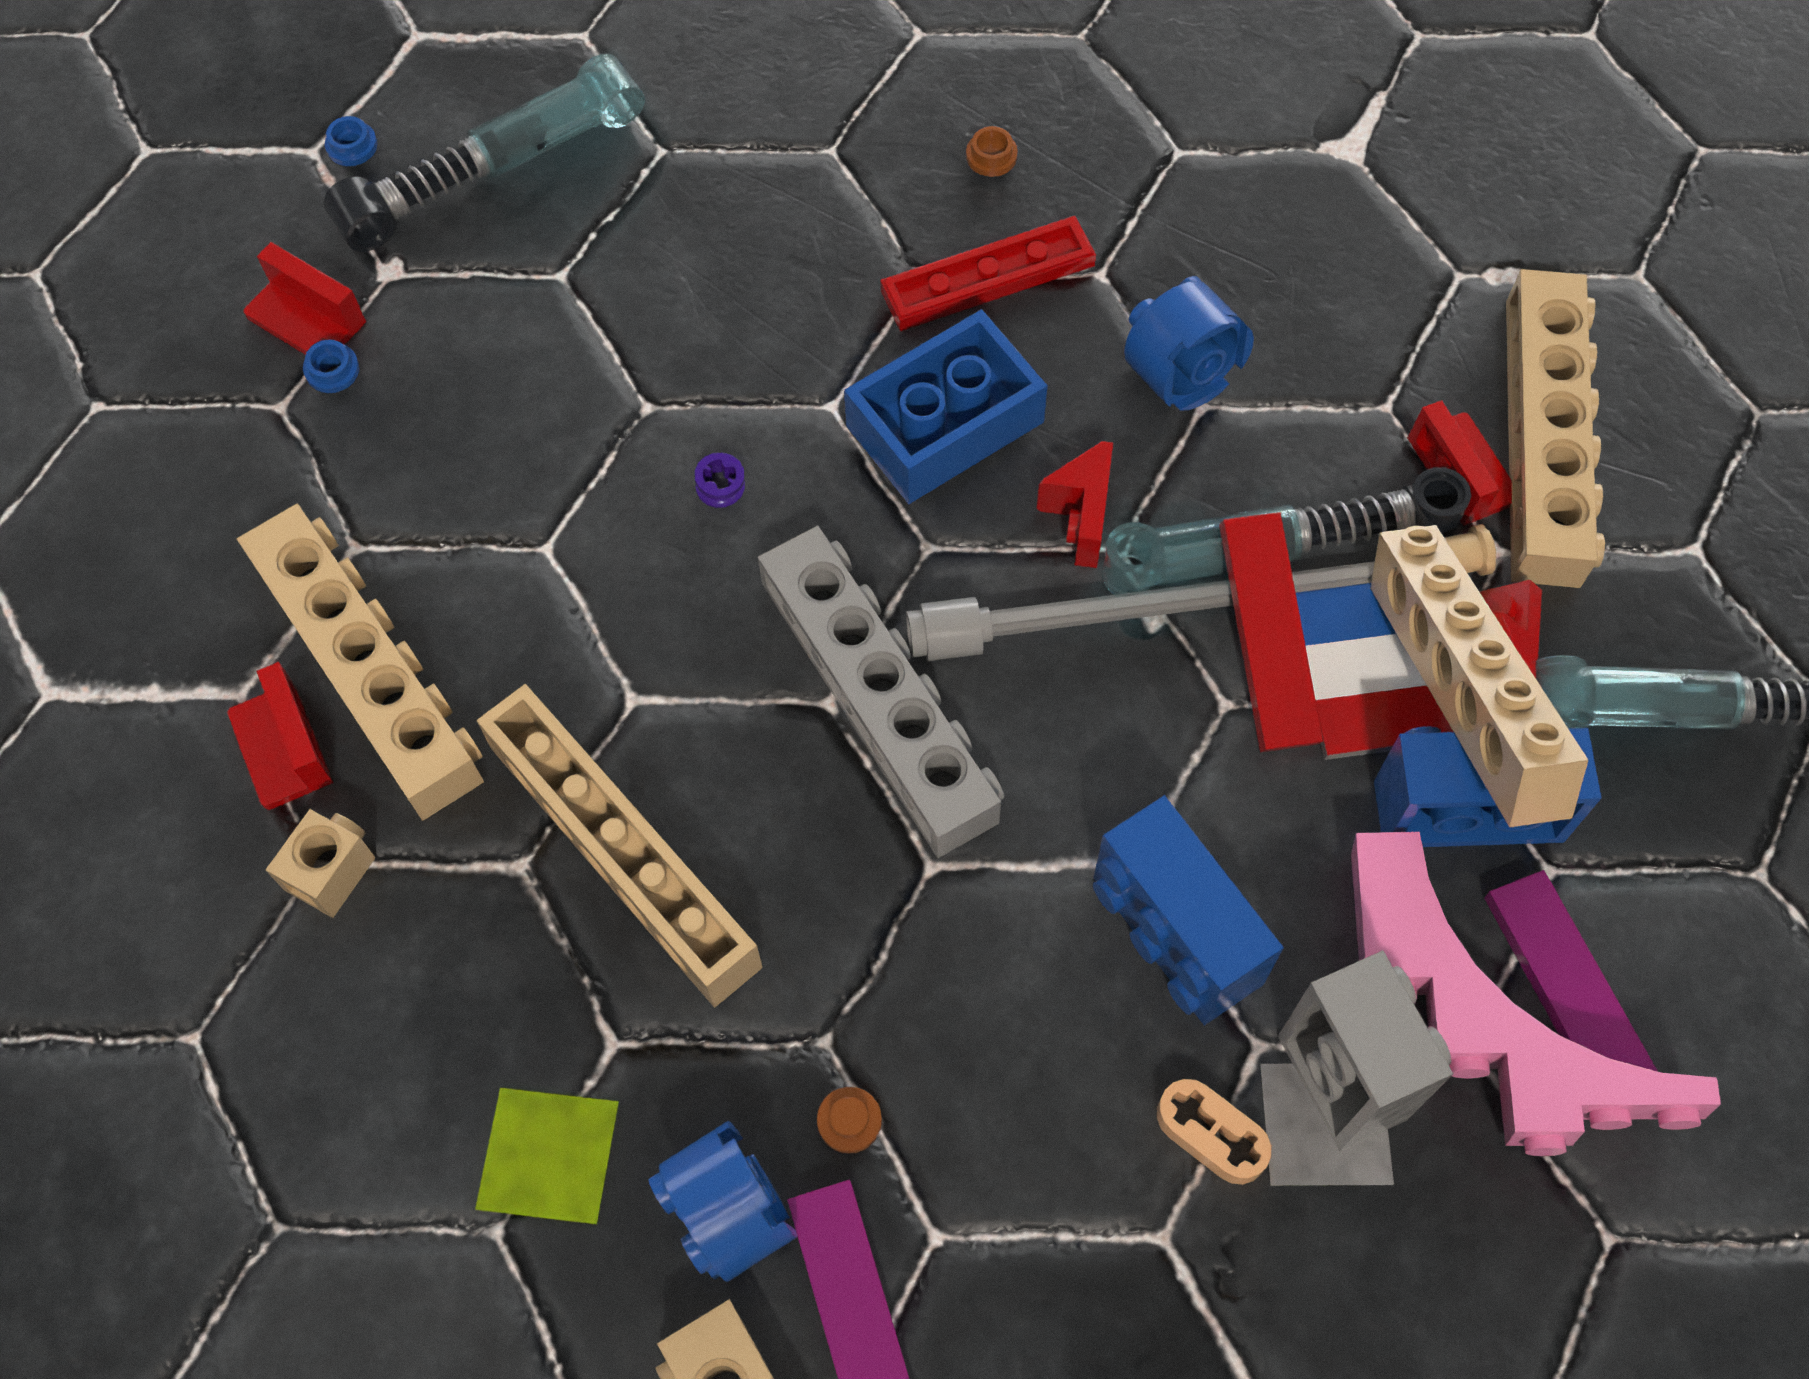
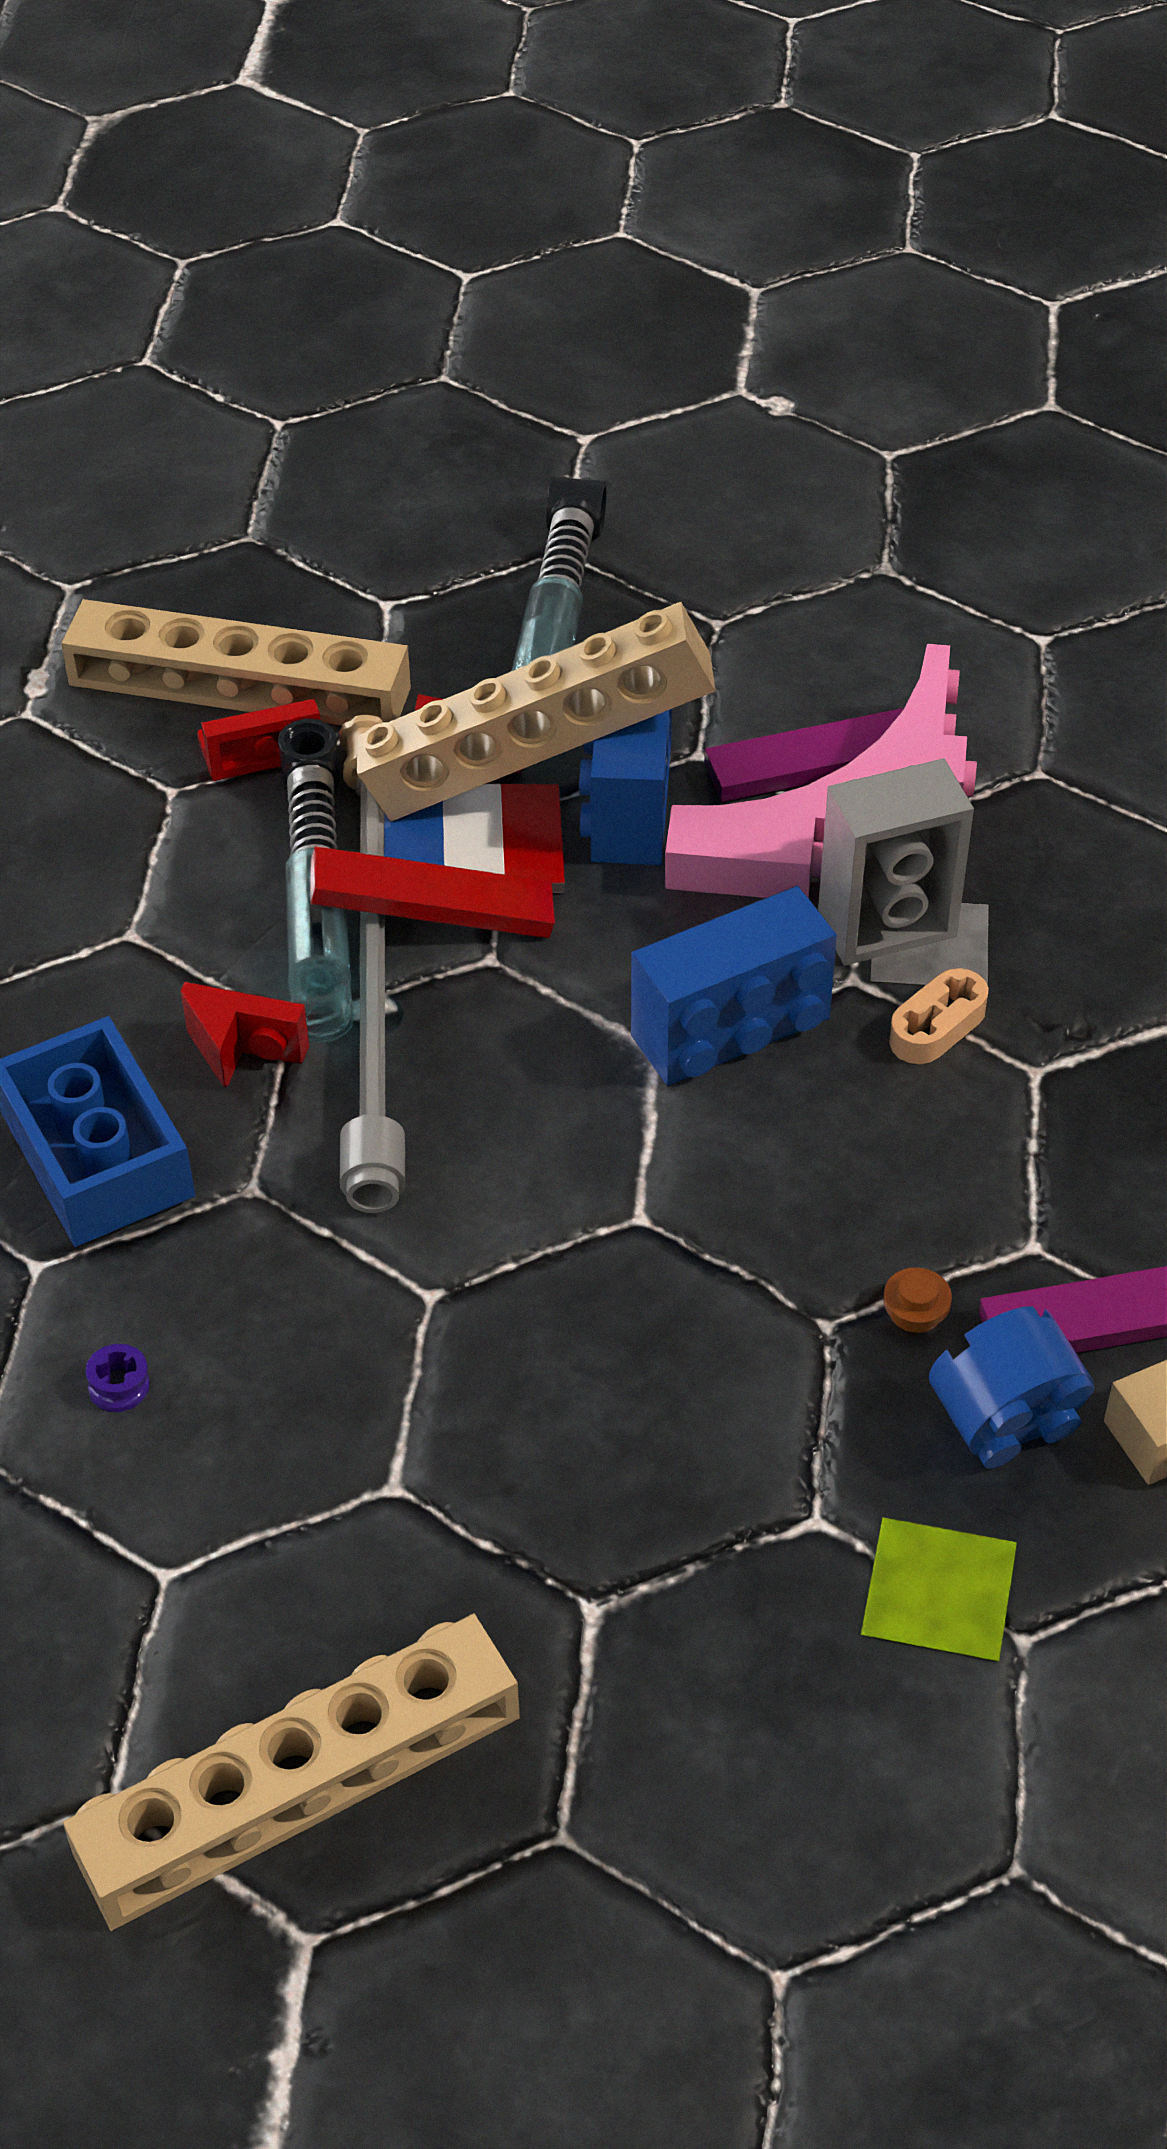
camera: 85 degrees left, 15 degrees down
(279, 741) = (390, 1871): red panel -> none
(329, 885) = (581, 1835): tan brick -> none
(621, 845) = (591, 1475): tan brick -> none
(942, 814) = (430, 1232): light grey brick -> none
(1186, 344) = (72, 911): blue brick -> none

